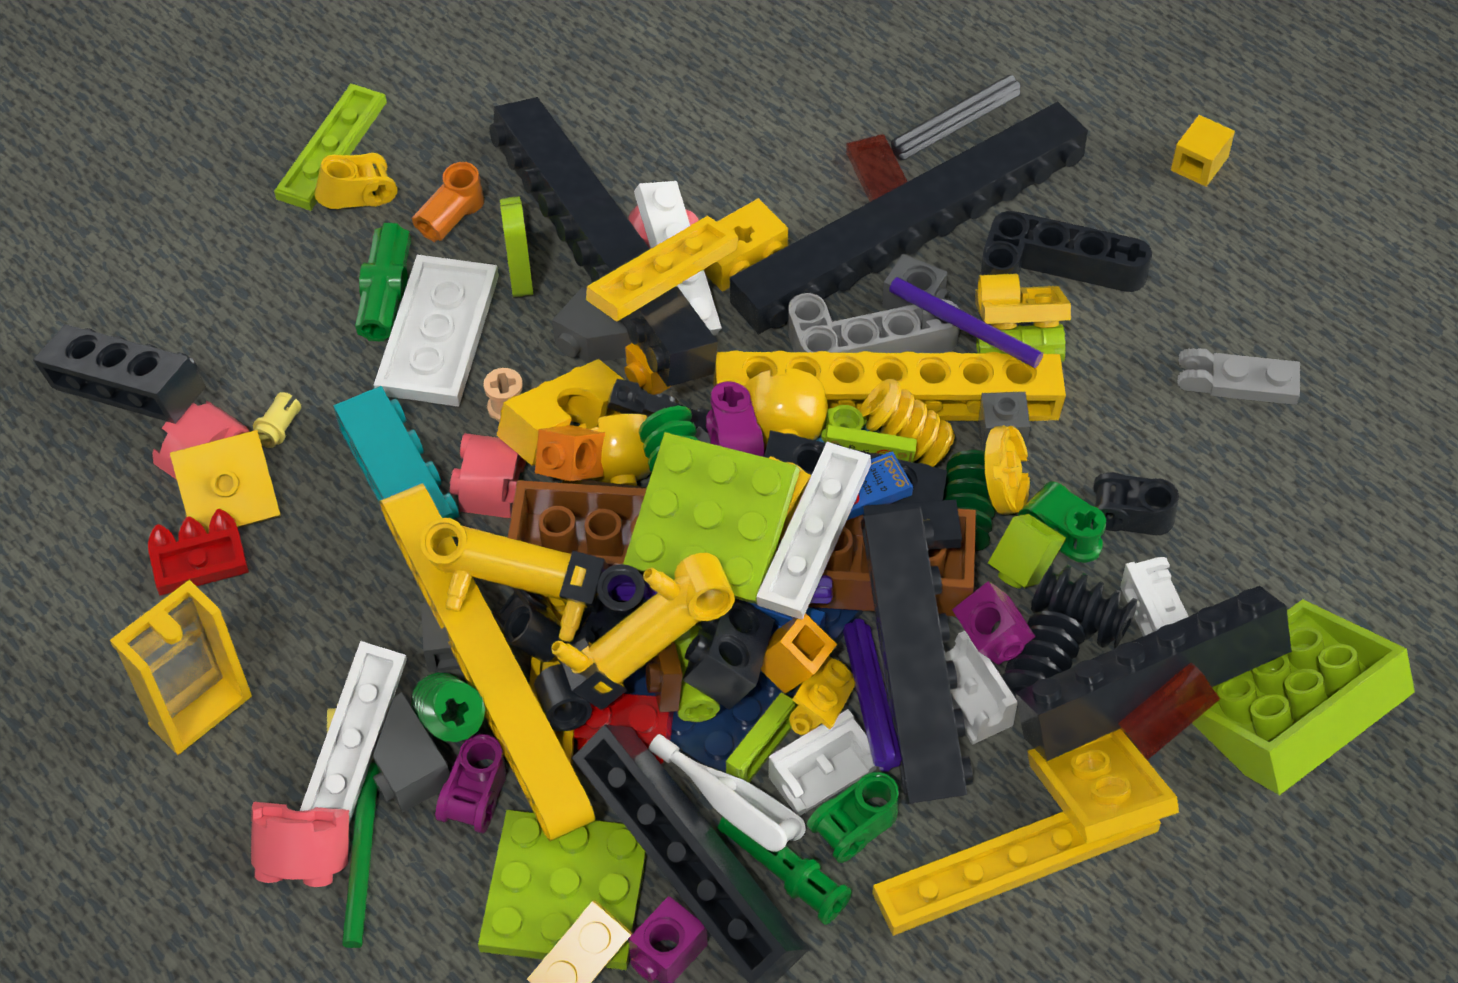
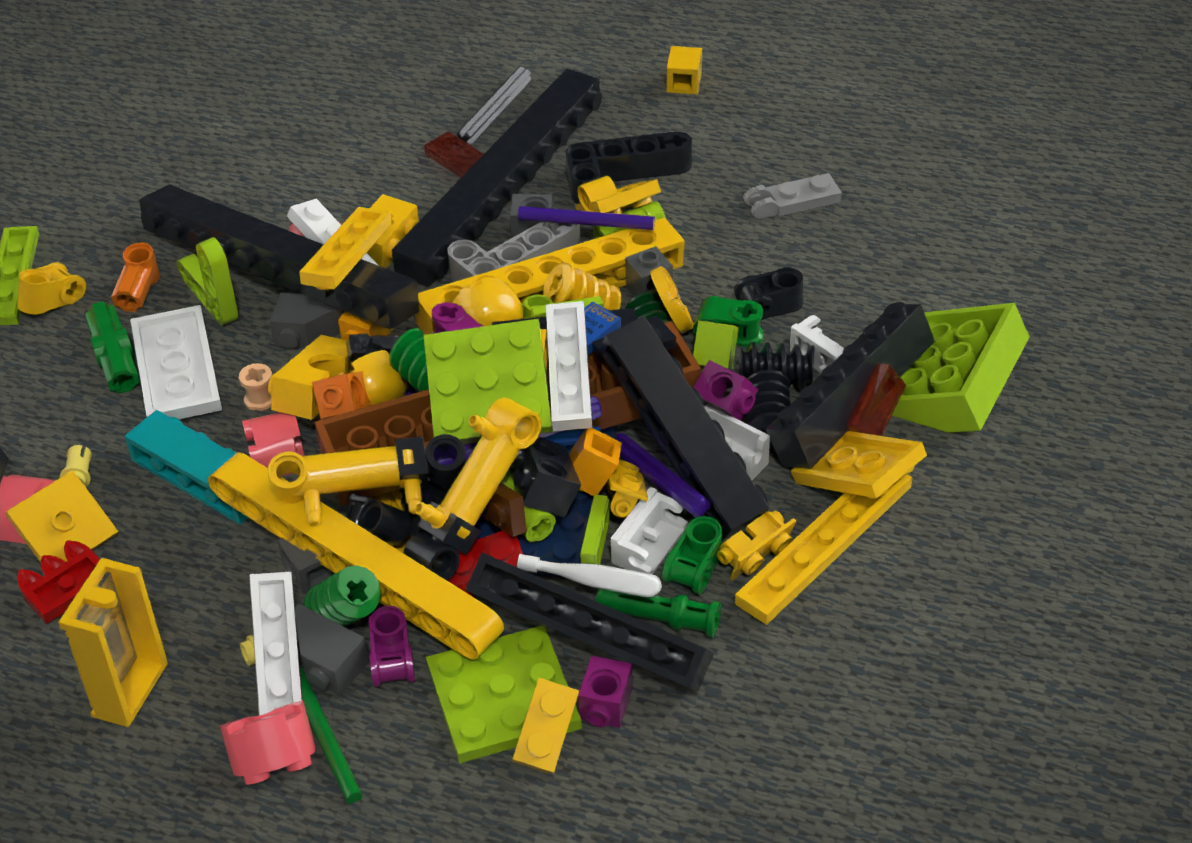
camera: 25 degrees left, 10 degrees down
(952, 826) = (748, 555): none -> yellow hinge

